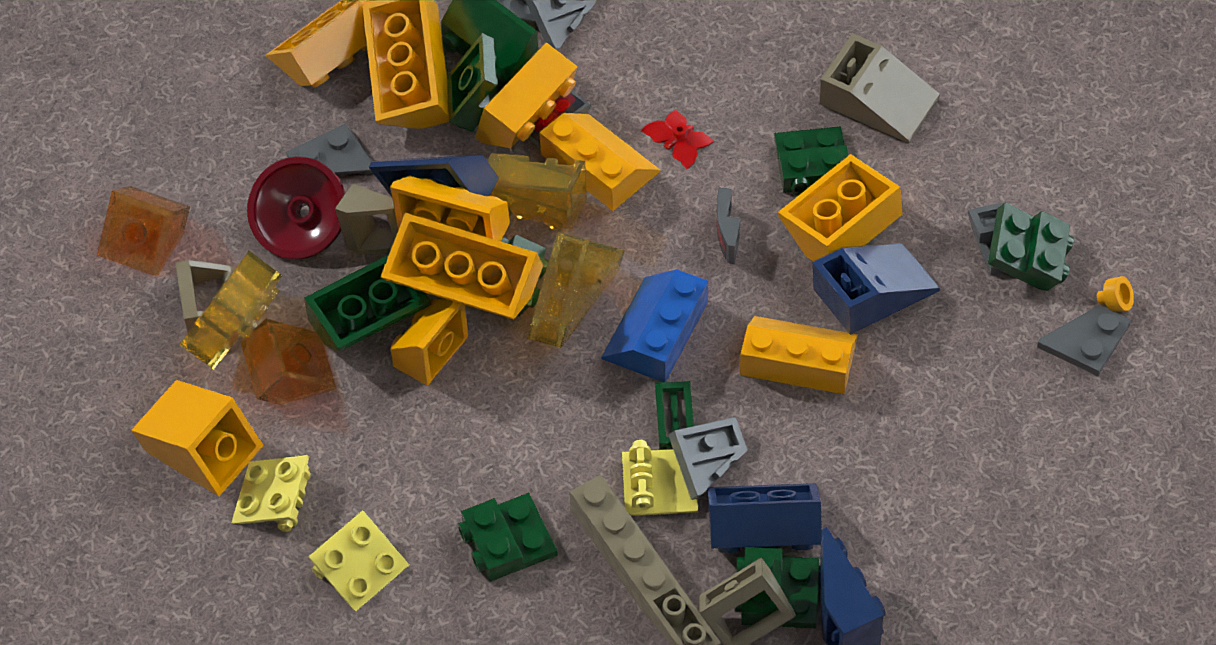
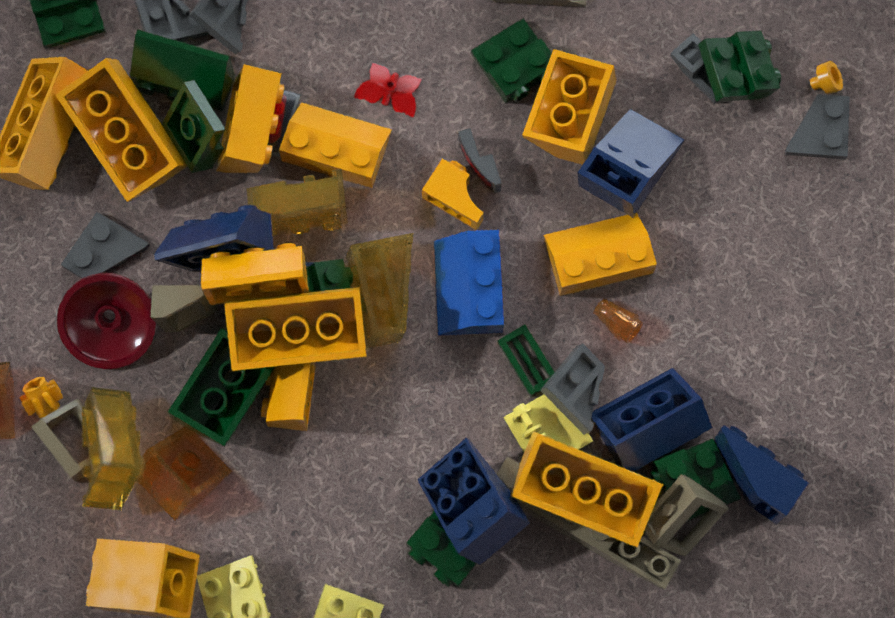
camera: 30 degrees left, 20 degrees up
(200, 246) = (41, 397): none -> light orange gear
(542, 497) = (472, 503): none -> dark blue slope
(660, 527) = (585, 489): none -> light orange slope
(682, 238) = (449, 192): none -> light orange arch
(784, 416) = (618, 320): none -> clear orange cone

